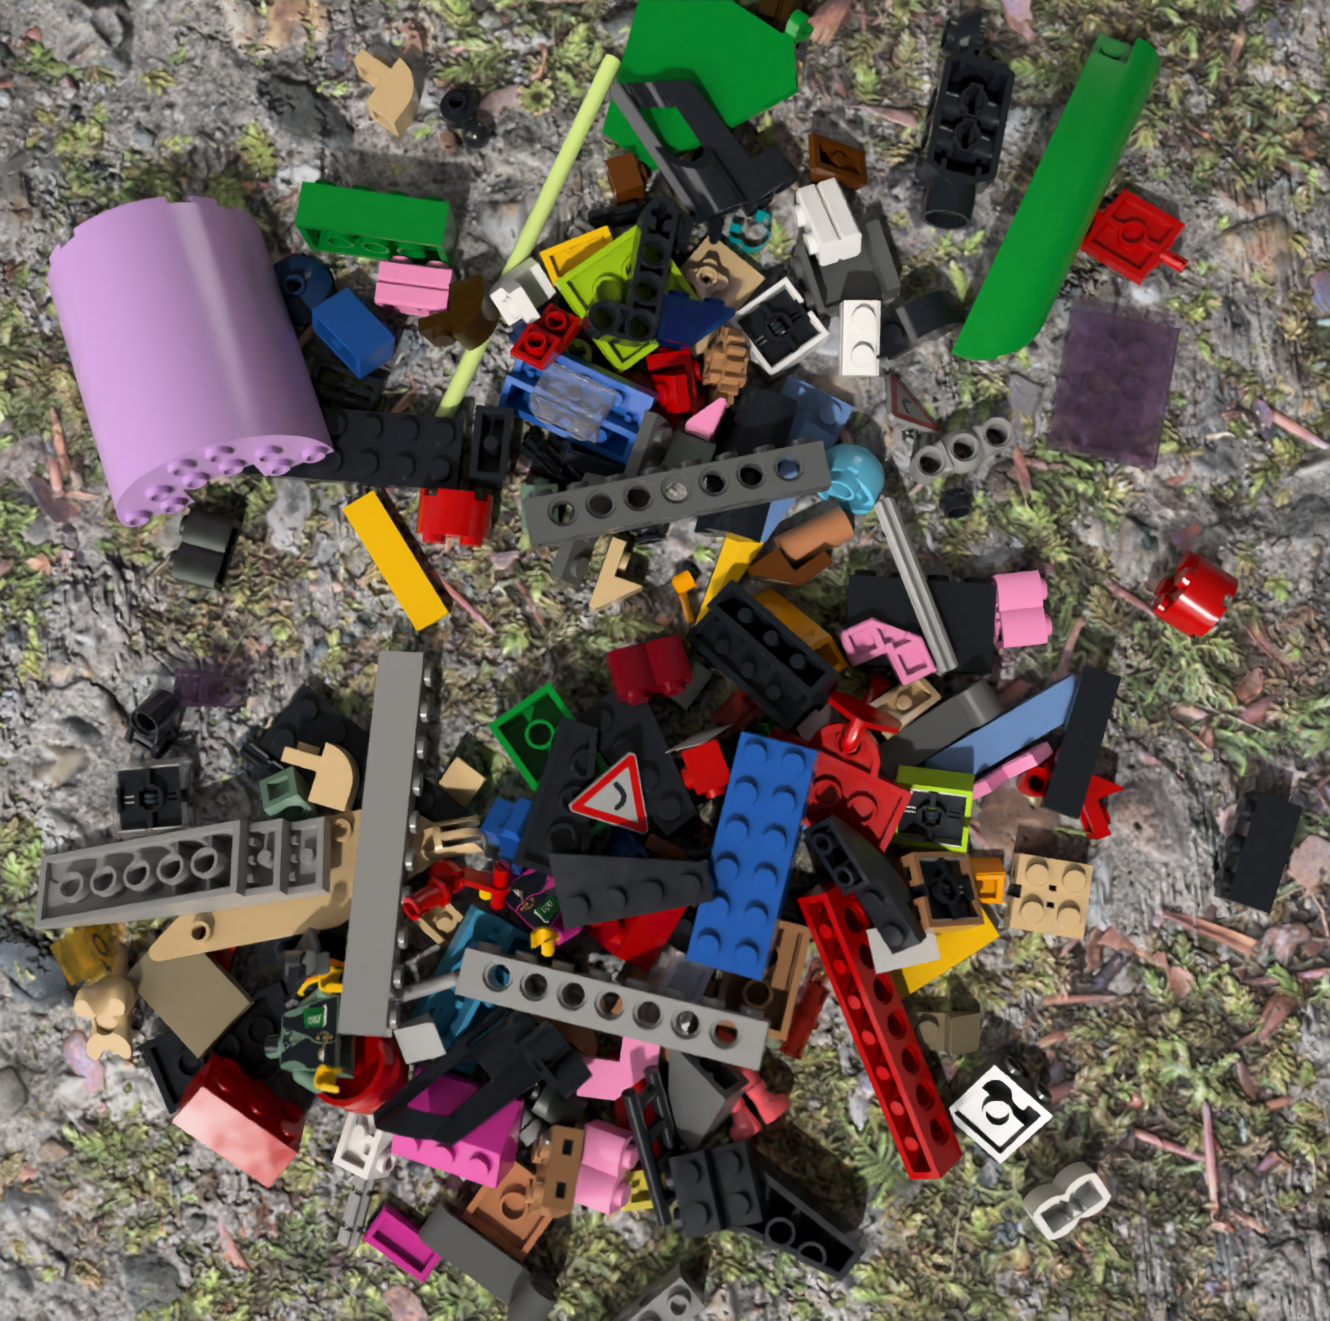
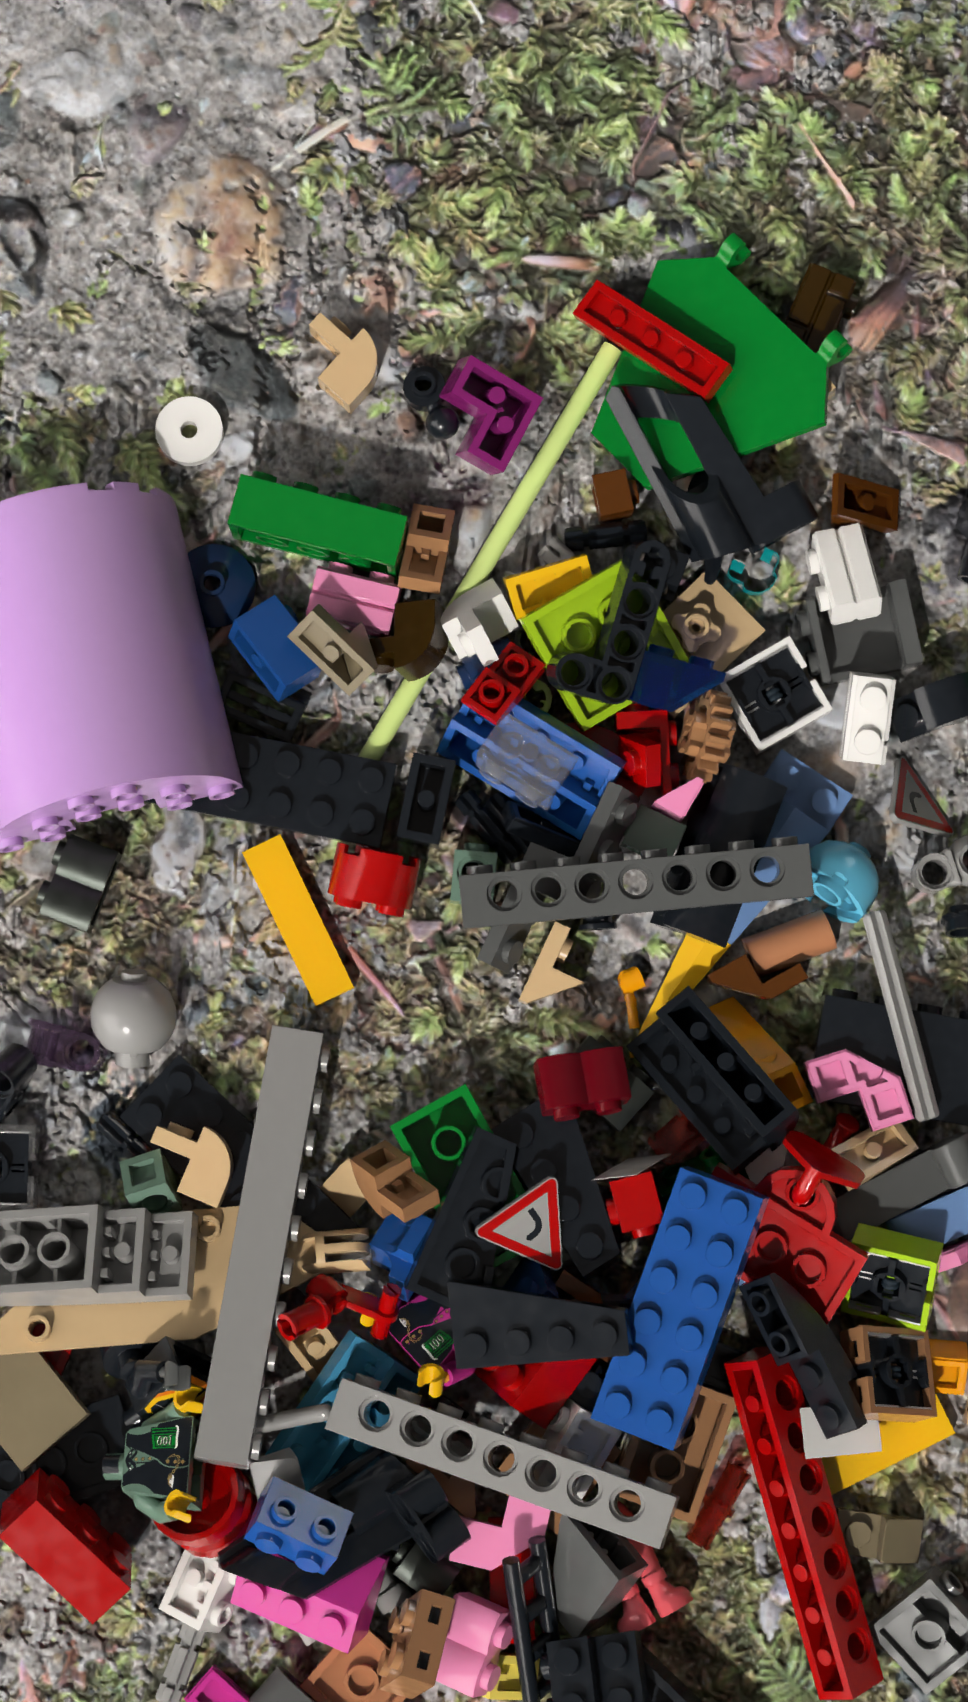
camera: 10 degrees right, 0 degrees up
(261, 656) = (133, 1017): none -> light grey brick
(262, 148) = (185, 412): none -> white piece
(402, 326) = (339, 654): none -> dark tan slope
(439, 1083) = (298, 1526): none -> blue brick
(472, 237) = (426, 548): none -> medium nougat brick
(494, 775) = (390, 1183): none -> medium nougat brick
(516, 108) = (499, 409): none -> magenta brick
(645, 44) = (652, 341): none -> red plate

